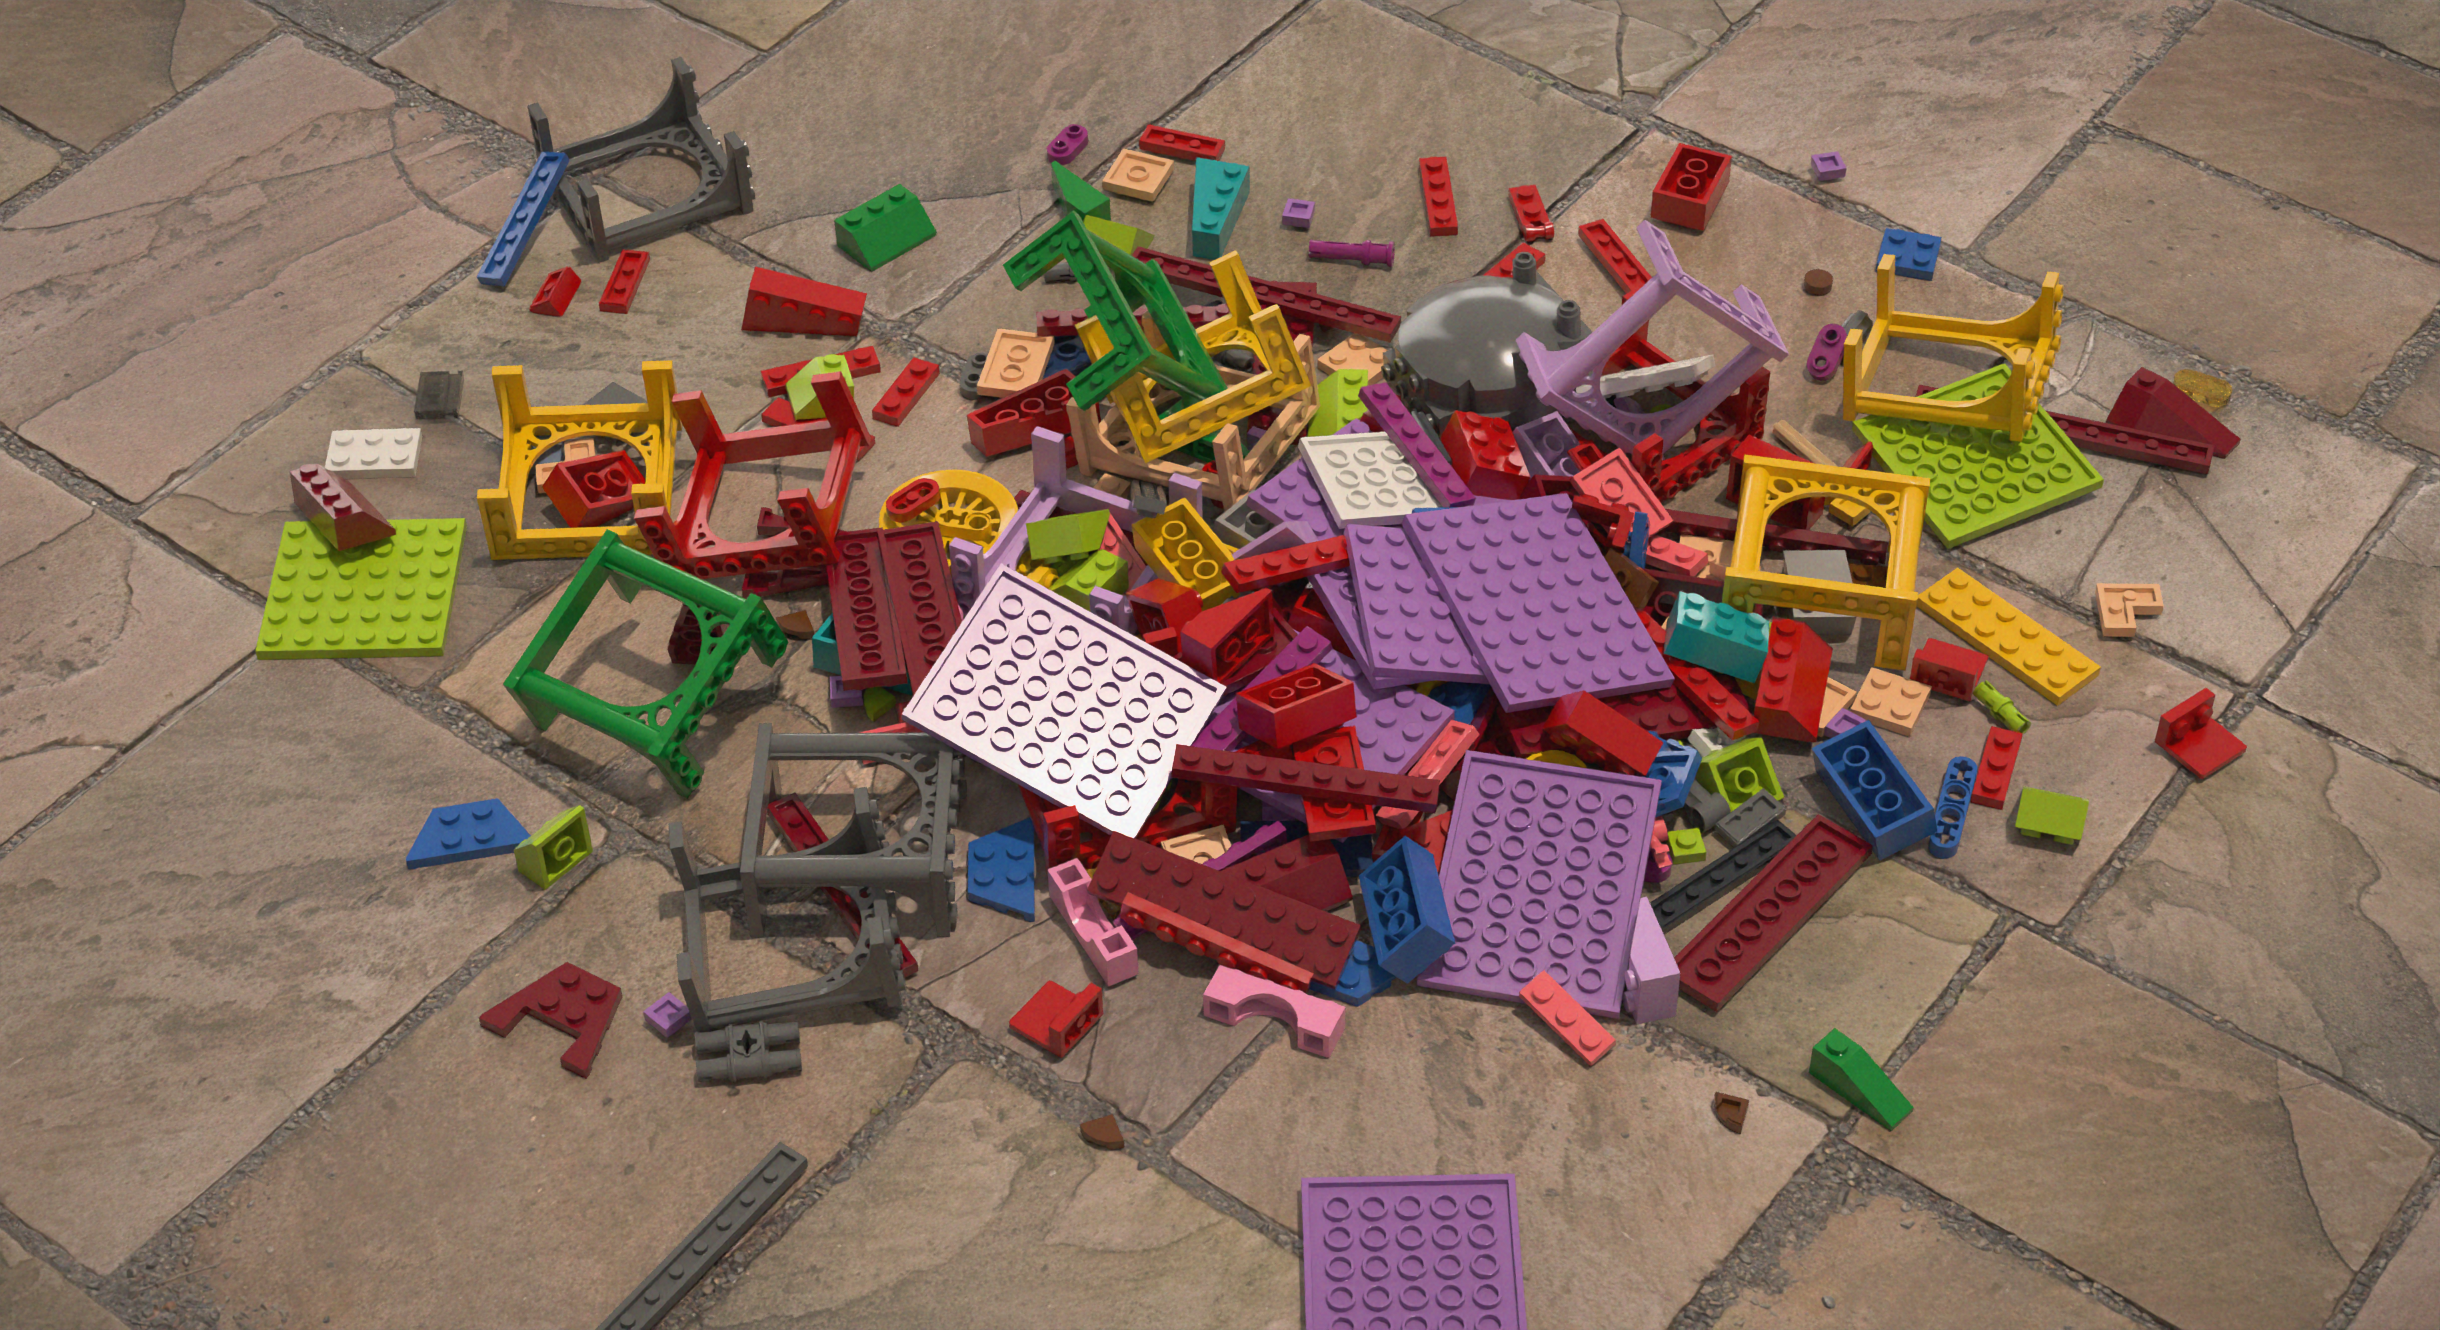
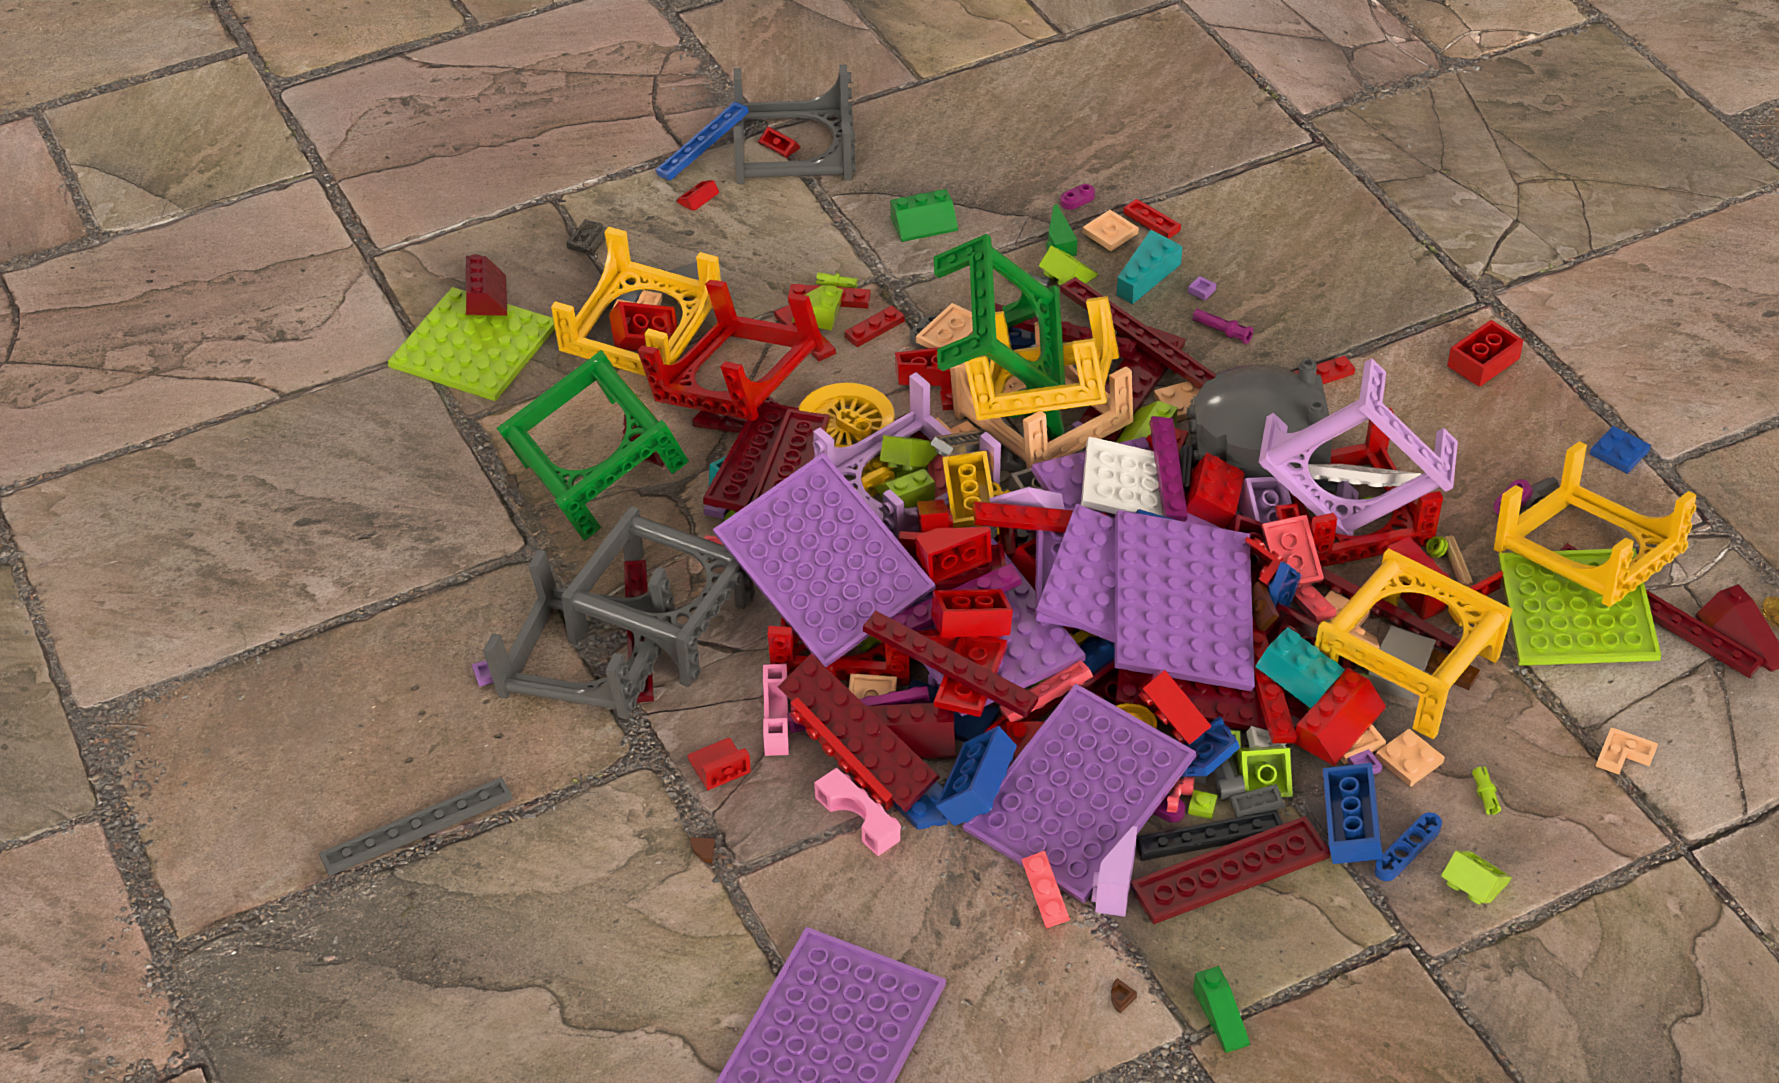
camera: 25 degrees right, 0 degrees up
(374, 453) = (530, 261): white plate -> none
(466, 834) = (440, 516): blue wing -> none
(555, 847) = (482, 544): lime slope -> none
(567, 1001) = (435, 641): dark red wing -> none
(624, 190) = (778, 142): none -> red slope
(624, 281) = (744, 200): red tile -> none
(758, 1061) = (519, 713): dark grey pin -> none
(796, 624) = (714, 452): reddish brown tile -> none
(801, 305) = (838, 249): red wedge -> none
(819, 348) = (836, 280): none -> lime pin
(912, 500) = (826, 396): red plate -> none
(1004, 869) = (743, 658): blue wing -> none
(1438, 196) = (1306, 306): red plate -> none
(1530, 213) = (1363, 336): red plate -> none
(1613, 255) = (1404, 388): red plate -> none
(1771, 432) = (1437, 546): none -> lime plate
(1818, 282) = (1540, 448): reddish brown tile -> none
(1828, 166) = (1598, 369): medium lavender plate -> none
(1948, 668) = (1464, 748): red bracket -> none
(1996, 768) = (1457, 830): red plate -> none
(2008, 636) = (1524, 742): yellow plate -> none
(2196, 738) = (1619, 861): red bracket -> none

